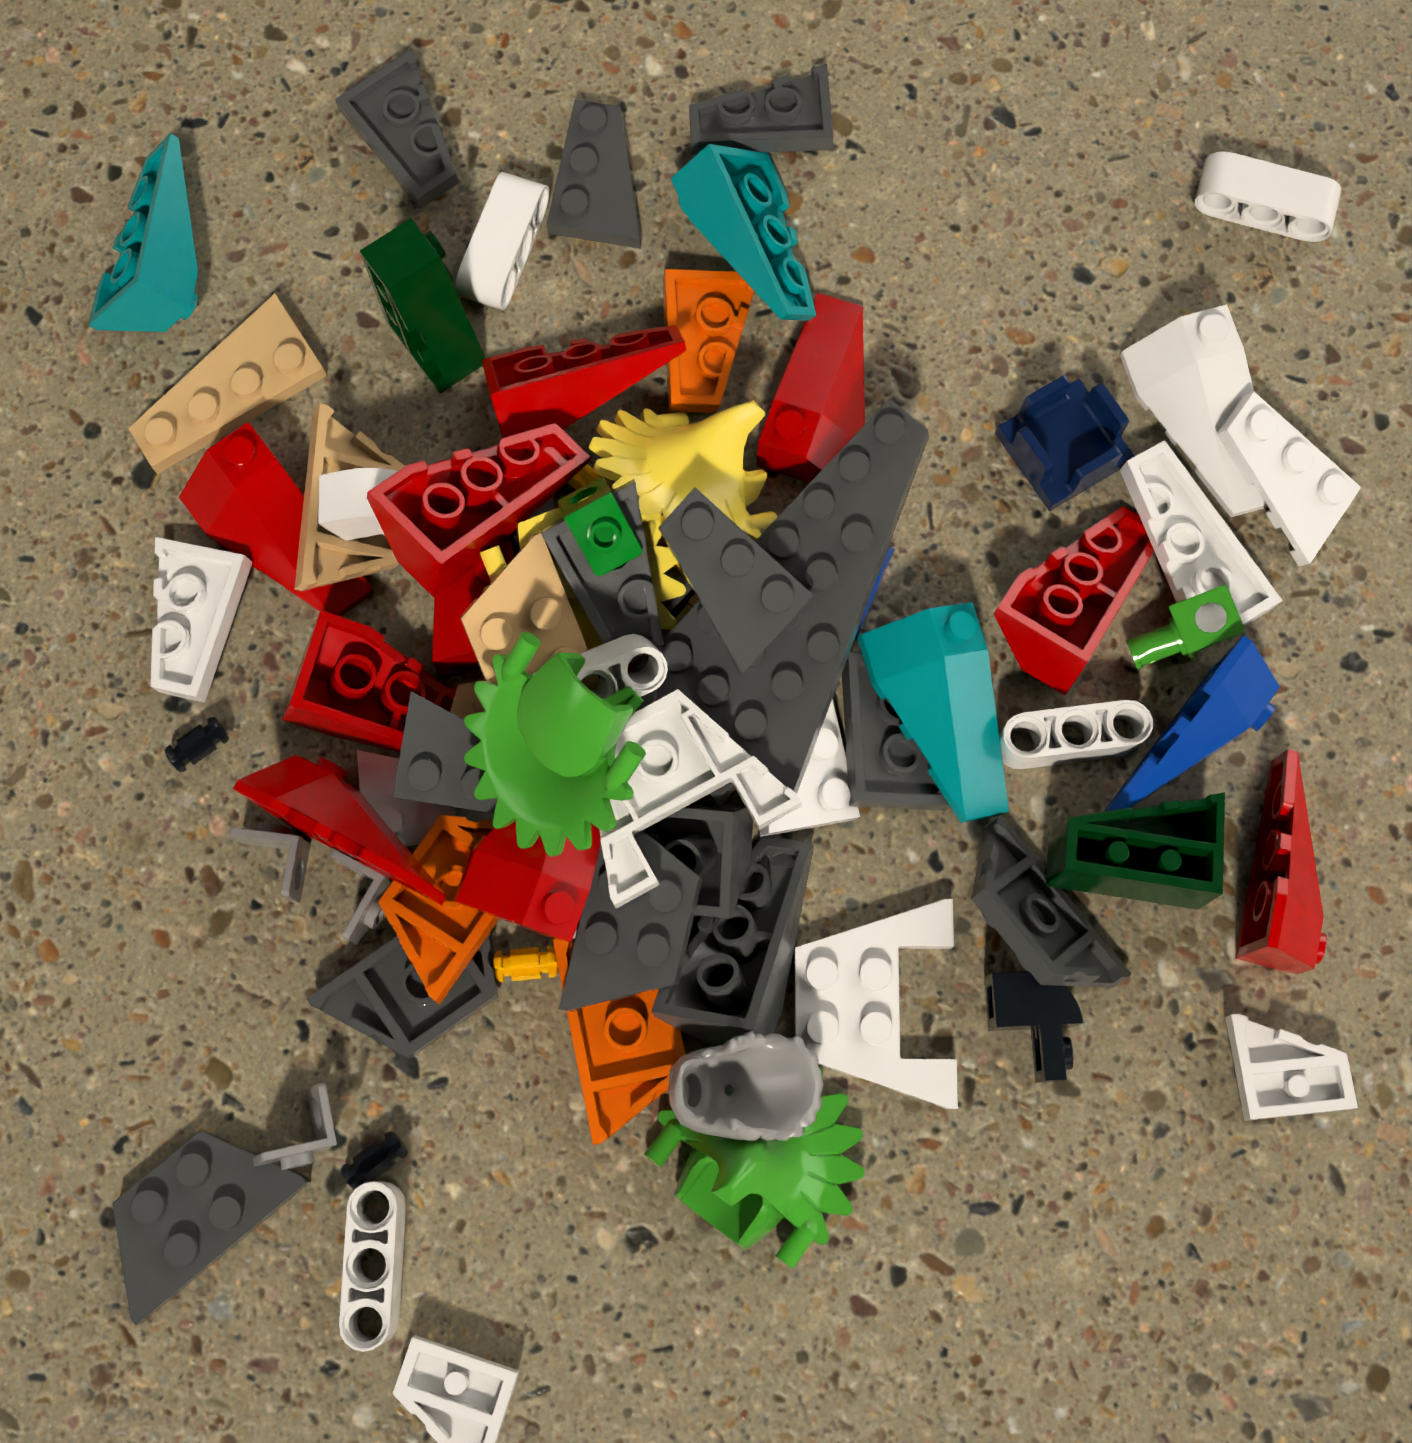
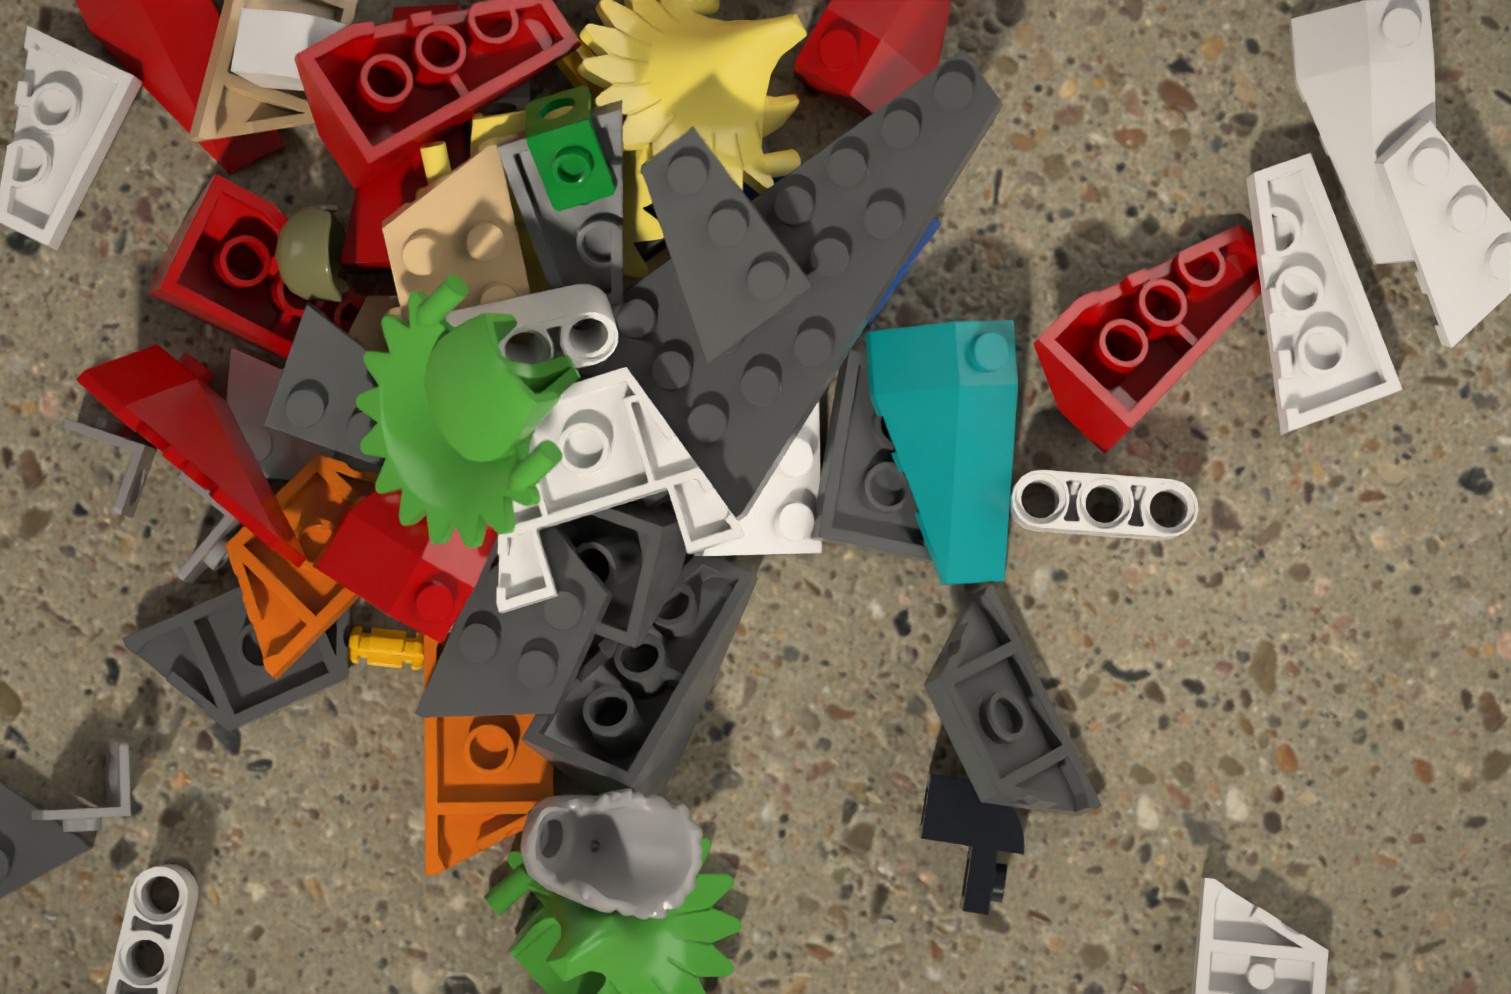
camera: 15 degrees right, 10 degrees up
(196, 744) = (39, 301): black piece -> none
(374, 1160) = (170, 840): black piece -> none
(407, 654) = (311, 253): none -> olive hair
(851, 1002) = (763, 769): white wing -> none
(1066, 439) = (1188, 126): dark blue panel -> none
(1143, 854) = (1149, 670): dark green wedge -> none
(1183, 633) = (1261, 408): bright green bracket -> none
(1218, 711) = (1288, 511): blue wedge -> none
(1283, 894) = (1304, 755): red wedge -> none

